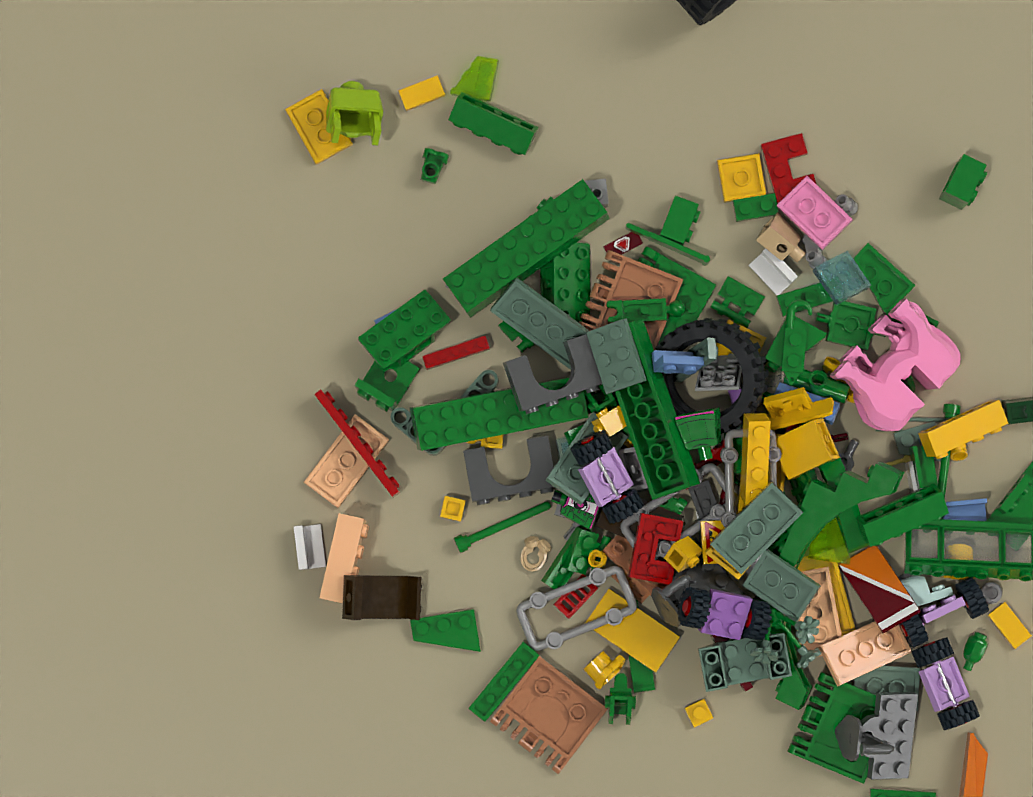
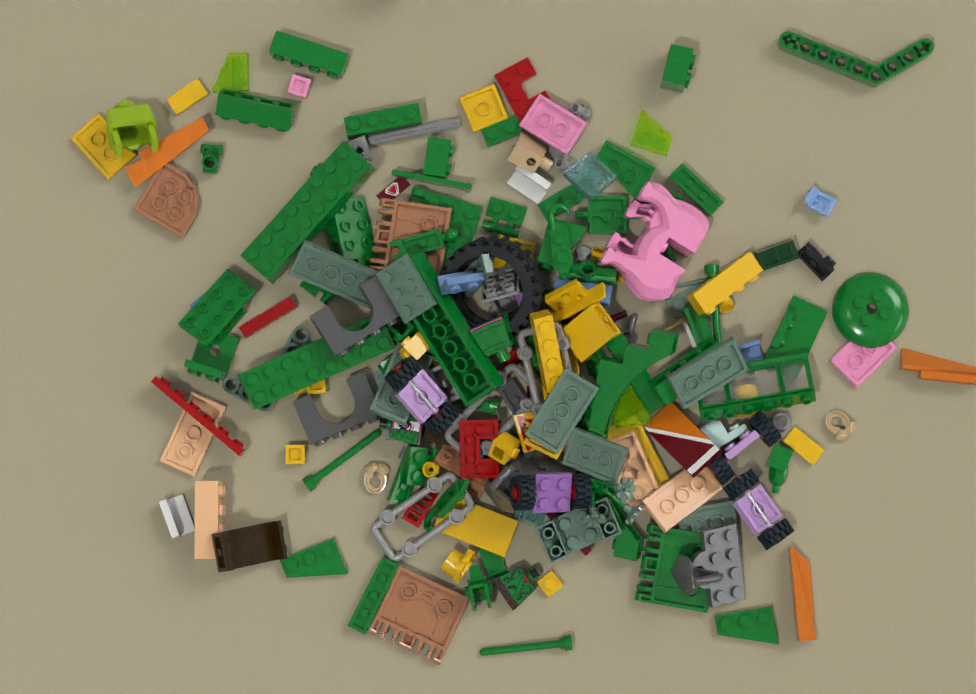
camera: 10 degrees left, 0 degrees up
(378, 201) = (170, 201): none -> nougat plate
(389, 145) = (167, 150): none -> orange wedge
(546, 108) = (299, 86): none -> bright pink plate
(564, 76) = (308, 54): none -> green brick
(607, 598) = (447, 502): none -> green plate
(629, 167) = (382, 121): none -> green brick
(643, 185) = (414, 131): none -> light grey axle
(662, 706) = (516, 585): none -> torso
(692, 636) = (529, 518): none -> clear light blue bracket
(700, 781) = (564, 643): none -> green piece
(714, 399) = (502, 306): none -> light grey bracket
(814, 360) = (582, 253): none -> light grey piece
(917, 249) = (650, 136): none -> clear neon green wing
(924, 522) = (707, 372): none -> sand green tile
(954, 319) = (696, 189): none -> green plate
(980, 632) = (779, 458): none -> green panel

